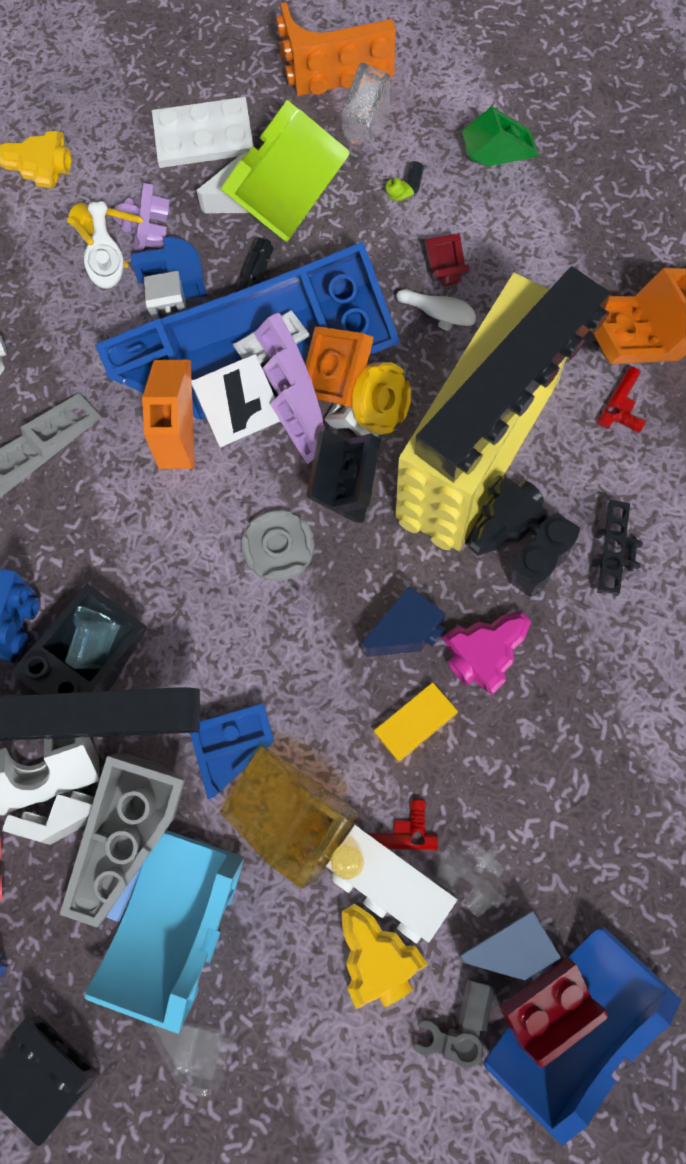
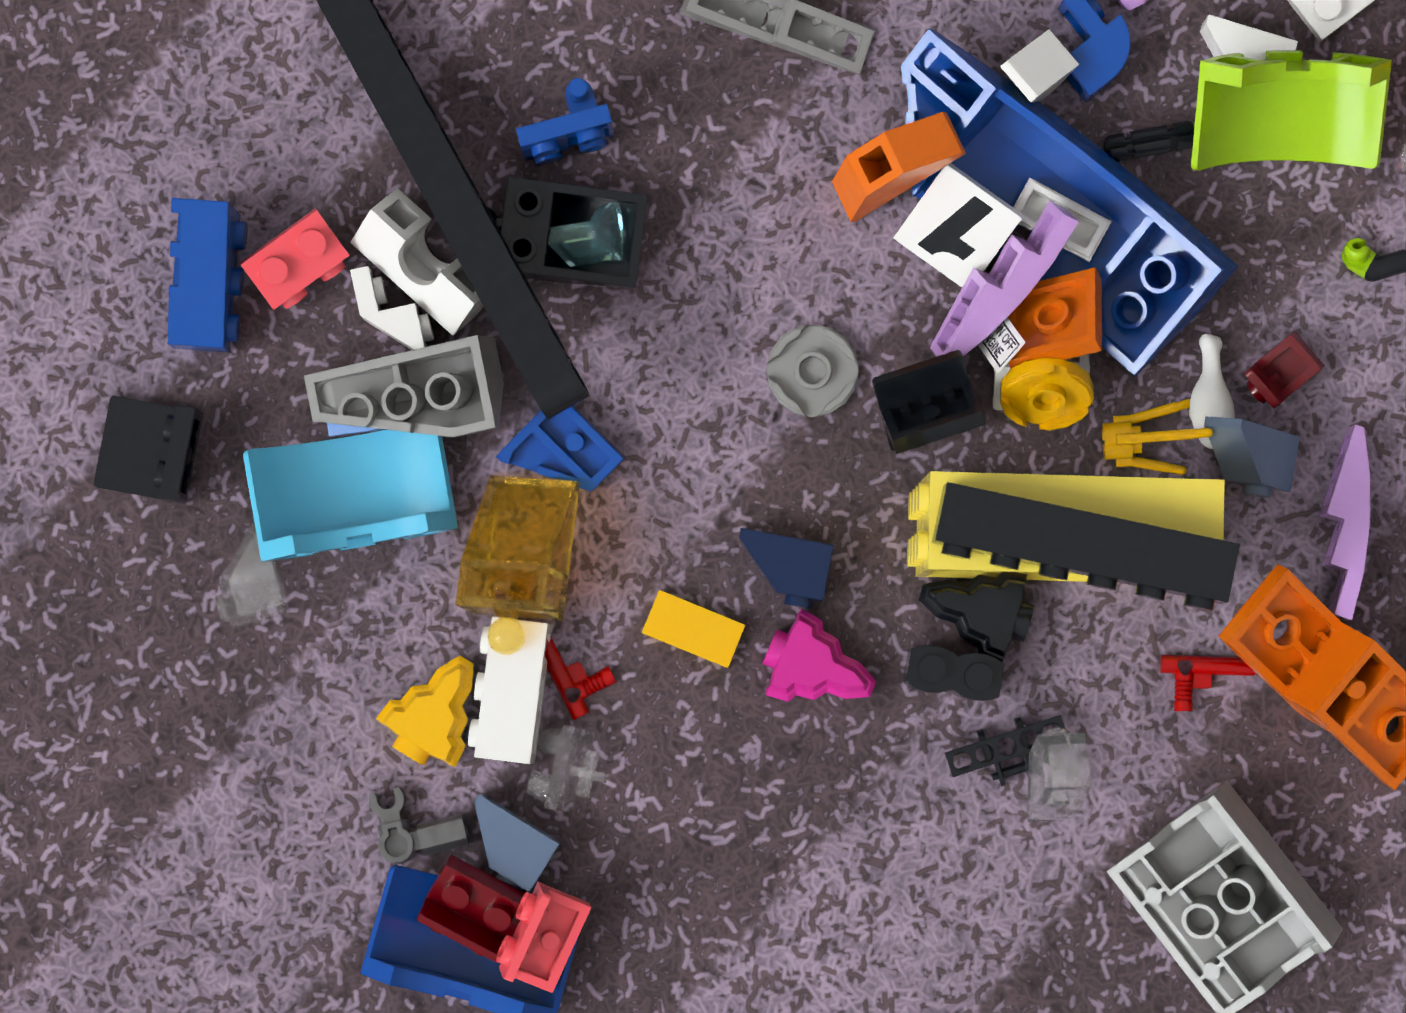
camera: 55 degrees right, 15 degrees up
(333, 405) = (1002, 345): none -> white sticker
(437, 371) = (1124, 440): none -> yellow plant
(481, 291) = (1253, 455): none -> sand blue slope
(551, 259) = (1349, 505): none -> lavender slope
(606, 966) = (543, 937): none -> coral bracket
(655, 518) = (1057, 776): none -> clear slope

